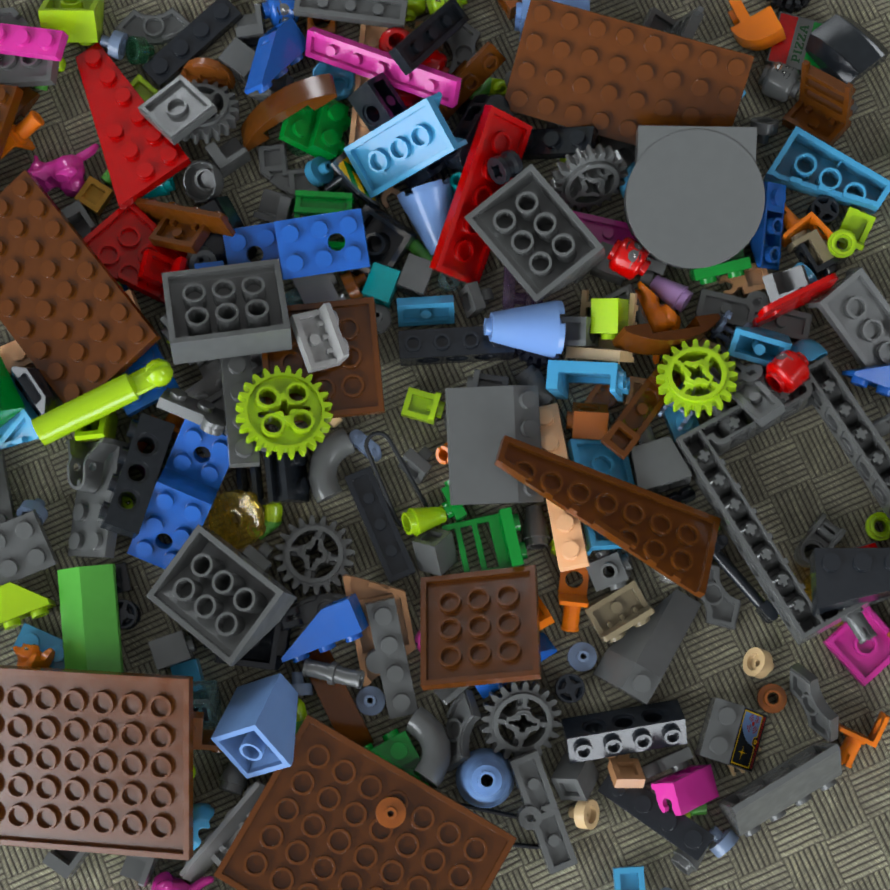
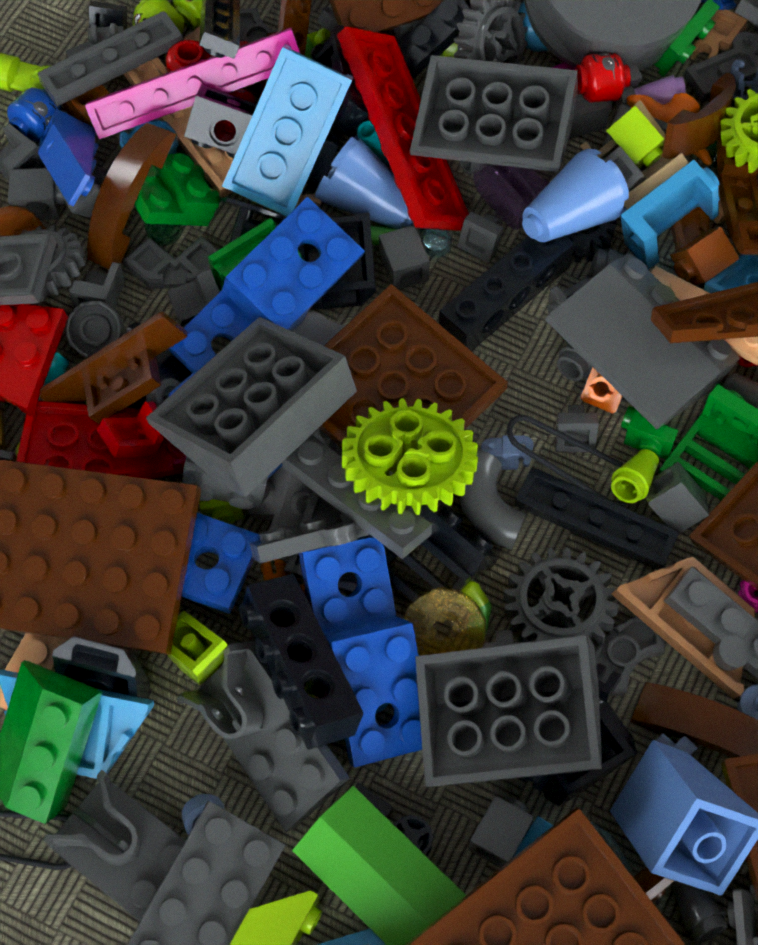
camera: 40 degrees left, 15 degrees down
(101, 401) = (190, 609): lime piece -> none
(319, 171) = (211, 232): dark azure tile -> none
(320, 338) = (381, 354): light grey bracket -> none
(333, 623) = (652, 650): blue slope -> none
(333, 673) = (703, 699): dark grey pin -> none
(353, 284) = (343, 310): dark orange tile -> none
(381, 284) = (373, 279): teal panel -> none
(423, 406) = (529, 369): lime bracket -> none
(425, 310) = (444, 279): dark azure plate -> none
(504, 167) = (413, 70): black wheel -> none

